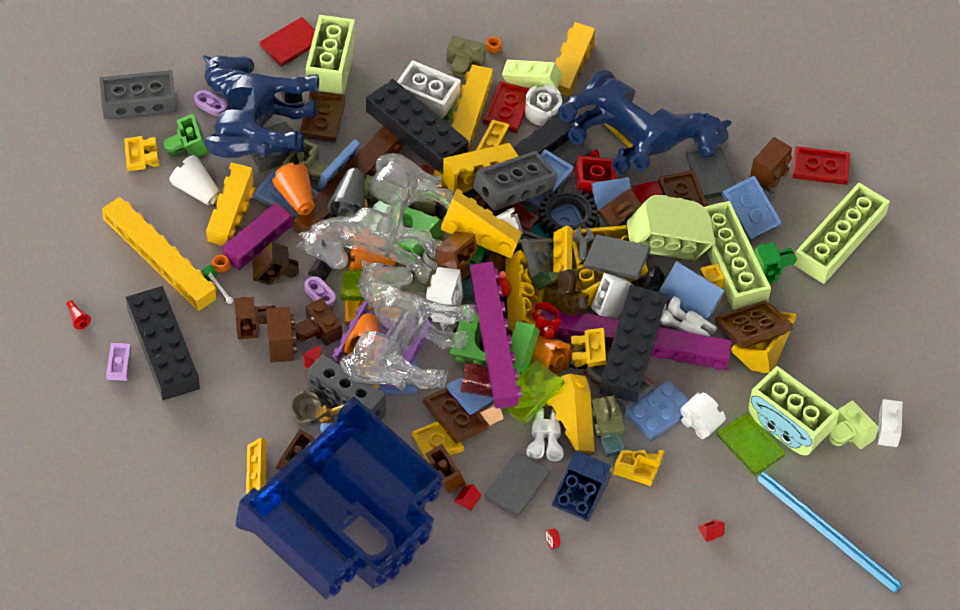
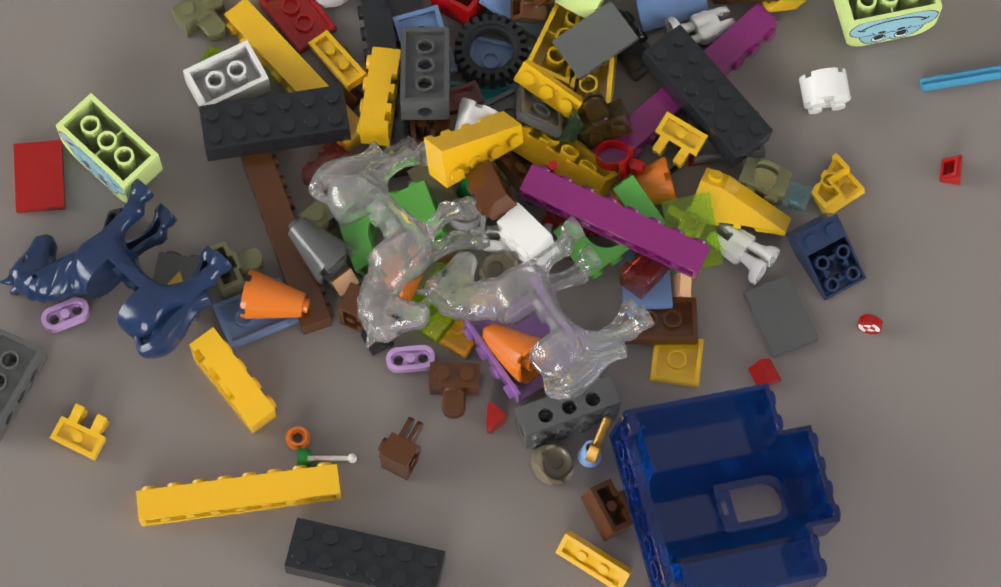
camera: 55 degrees left, 15 degrees up
(188, 138) = (102, 369): bright green brick -> none
(195, 181) = (172, 396): white cone -> none
(257, 236) = (290, 377): magenta brick -> none
(274, 263) = (345, 385): dark brown brick -> none
(281, 334) = (446, 433): reddish brown brick -> none
(327, 118) = (189, 211): reddish brown plate -> none
(338, 164) = (265, 237): medium blue tile -> none
(442, 462) = (724, 374): reddish brown brick -> none
(583, 242) = (550, 59): dark grey bar -> none
(611, 296) = (630, 77): white brick -> none
(657, 410) = (788, 120): medium blue plate -> none
(750, 444) = (879, 68): clear neon green tile -> none

